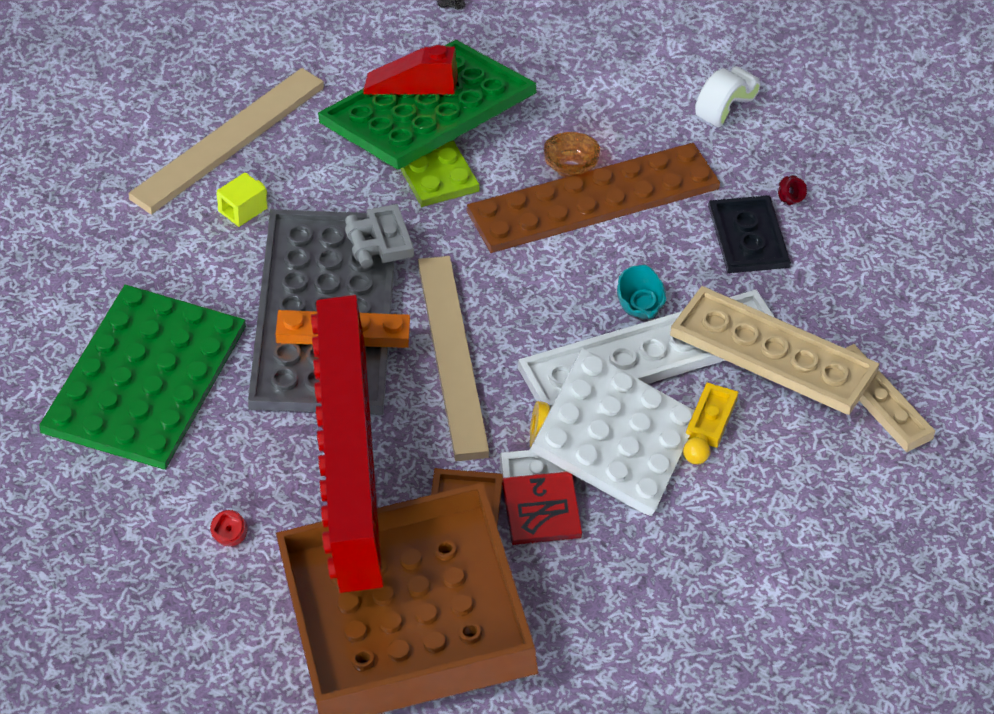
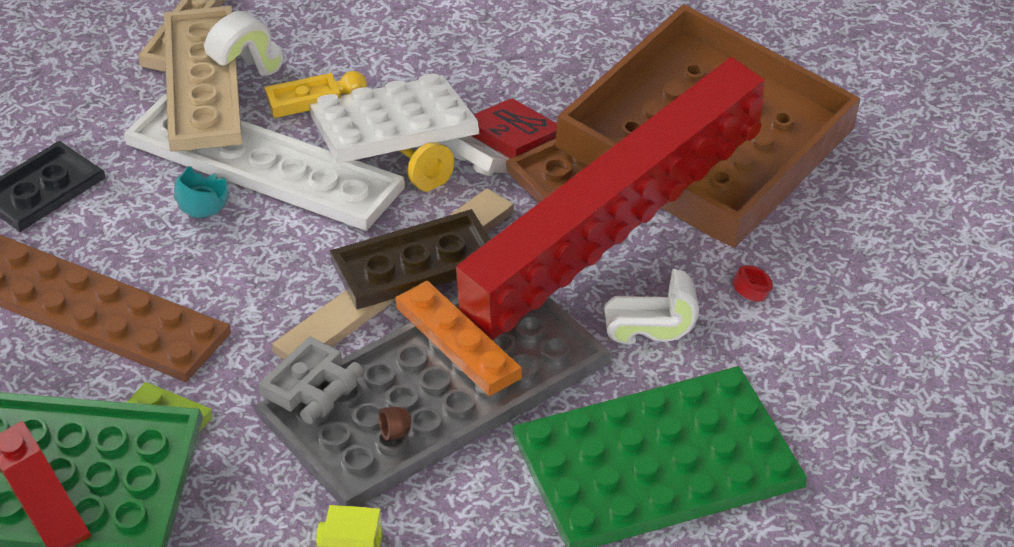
camera: 125 degrees left, 5 degrees down
(252, 449) = (654, 317): none -> white animal
(299, 251) = (394, 422): none -> copper hinge
(442, 354) = (405, 258): none -> dark brown plate
(571, 147) = (40, 322): clear orange piece -> none
(788, 391) = (246, 36): none -> white animal

